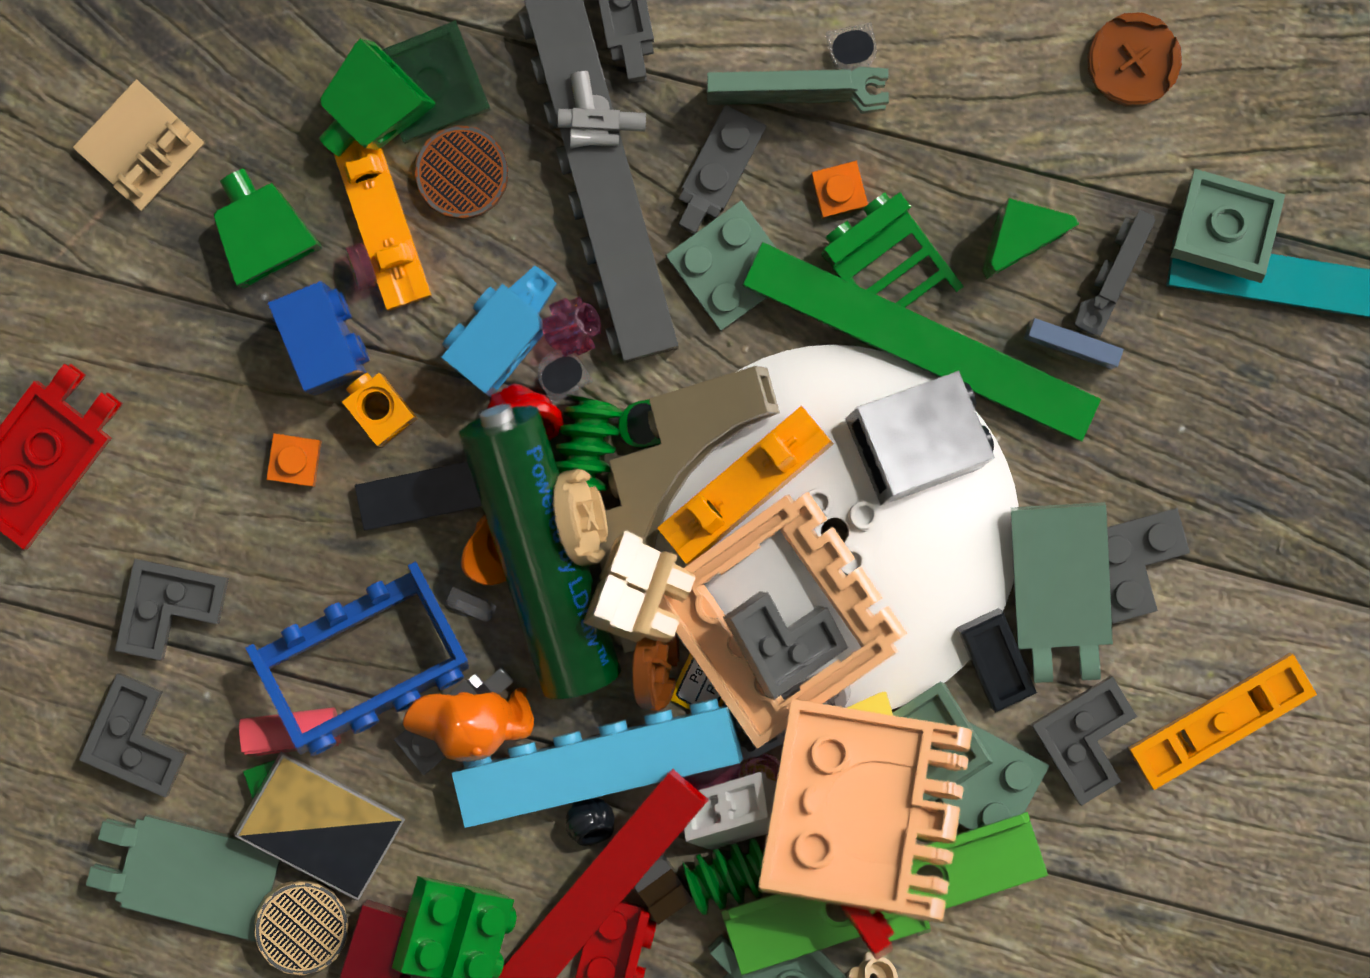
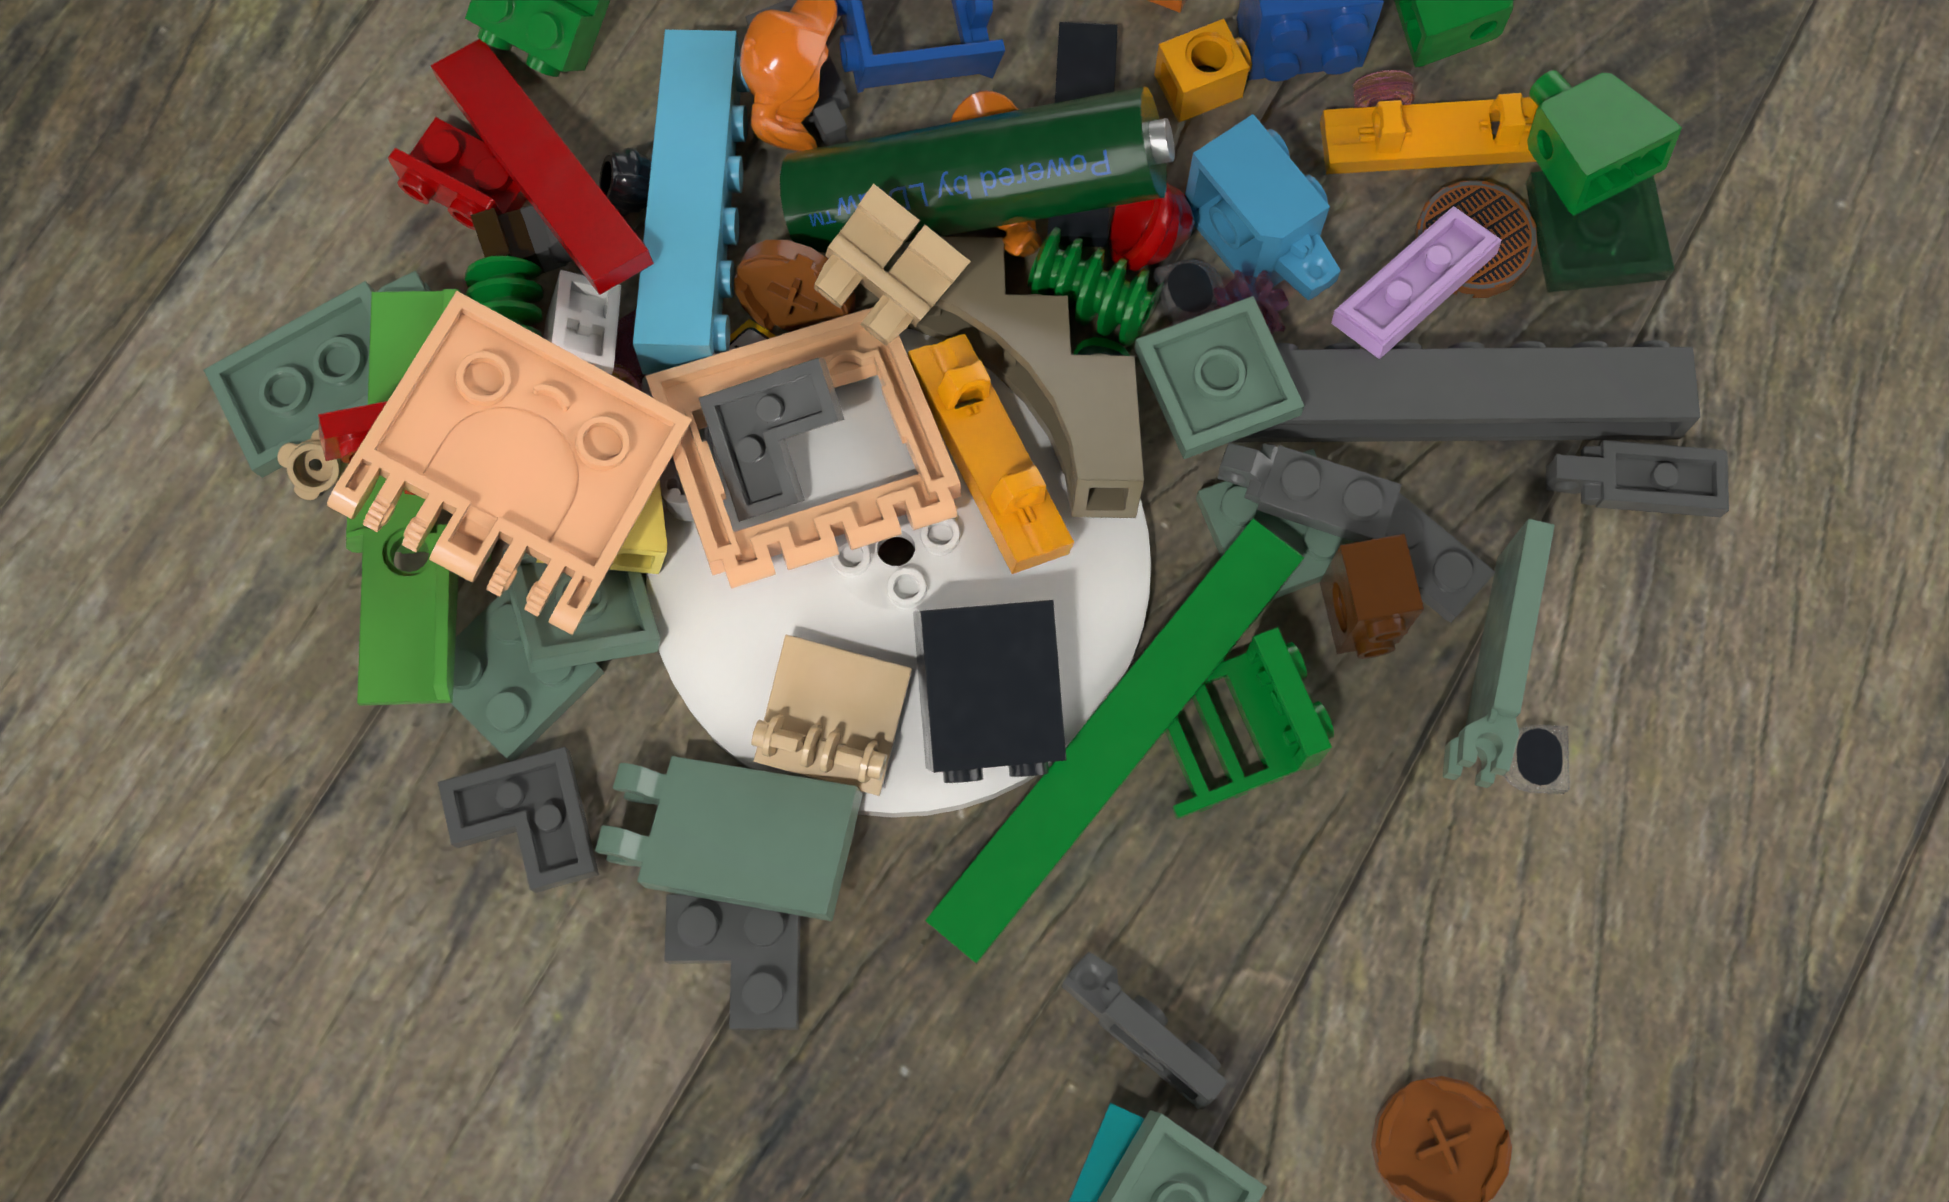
camera: 110 degrees right, 15 degrees down
(471, 604) = (936, 104): clear tile -> none
(522, 208) = (1416, 282): none -> lavender tile
(580, 517) = (1004, 220): tan tile -> none
(592, 116) = (1518, 388): light grey piece -> none
(647, 333) = (1218, 377): none -> sand green plate
(707, 245) = (1312, 490): none -> dark grey hinge
(779, 187) = (1371, 596): none -> reddish brown brick
(839, 189) = (1349, 690): orange plate -> none
(965, 541) = (832, 714): none -> tan hinge
(996, 660) = (666, 724): black tile -> none
(1022, 231) = (1231, 902): green slope -> none
(1073, 343) = (1062, 942): sand blue tile -> none
(1222, 721) = (483, 1004): light orange hinge -> none

